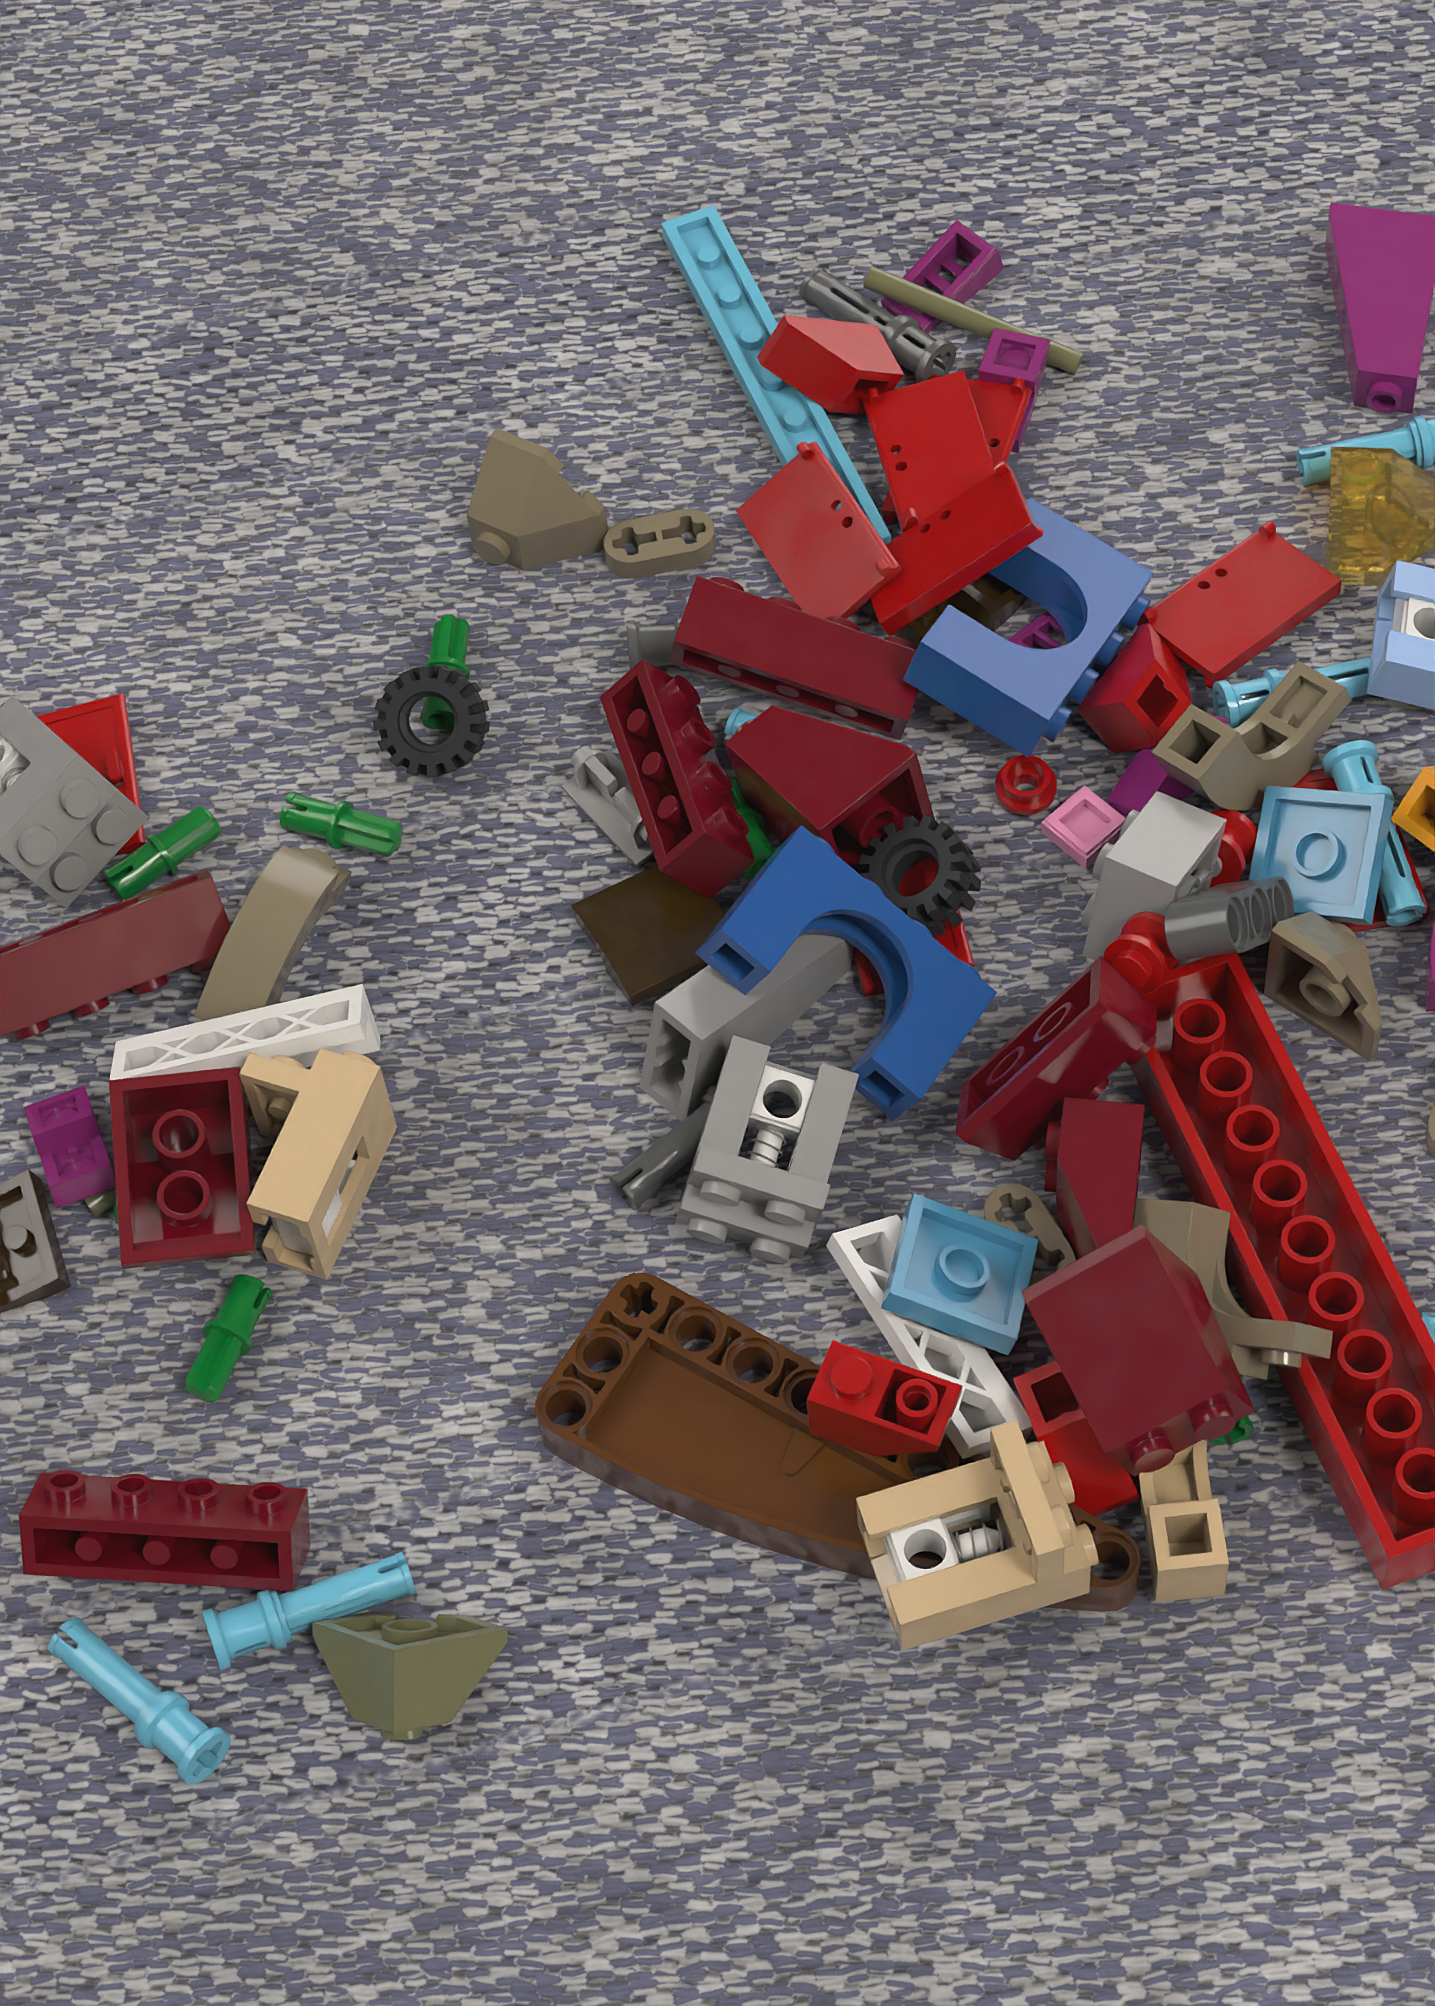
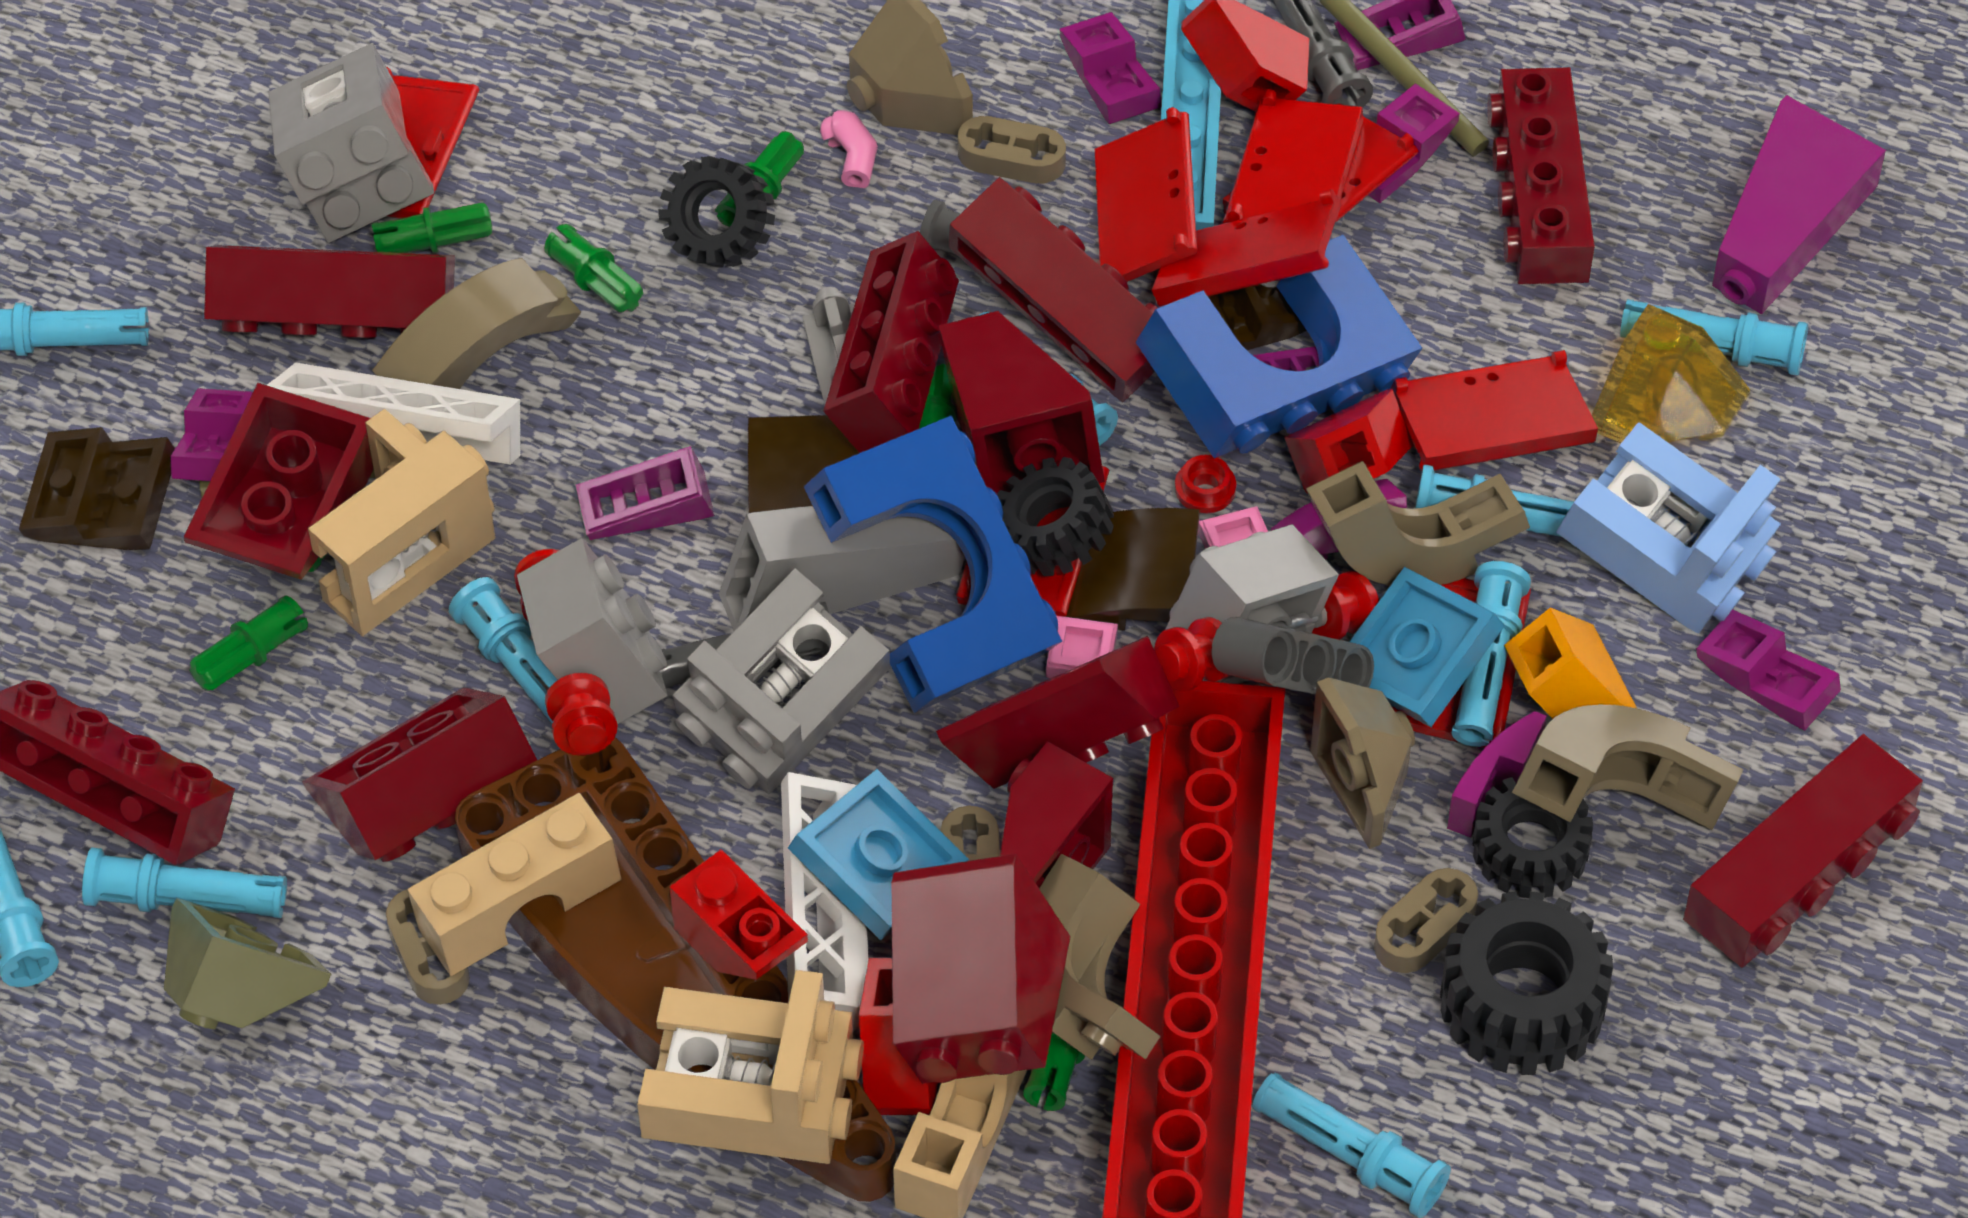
camera: 20 degrees right, 5 degrees down
(468, 1227) = (504, 638): none -> medium azure pin
(470, 1388) = (420, 772): none -> dark red slope
(517, 598) = (848, 131): none -> bright pink arm
(519, 994) = (670, 509): none -> magenta slope
(570, 1189) = (591, 642): none -> light grey brick
(584, 1543) = (414, 953): none -> dark tan beam
(614, 1489) = (471, 901): none -> tan arch
(697, 425) = (1109, 68): none -> magenta slope
(1017, 991) = (1080, 643): none -> bright pink tile
(1022, 895) = (1138, 568): none -> dark brown slope
(1155, 366) = (1543, 176): none -> dark red brick

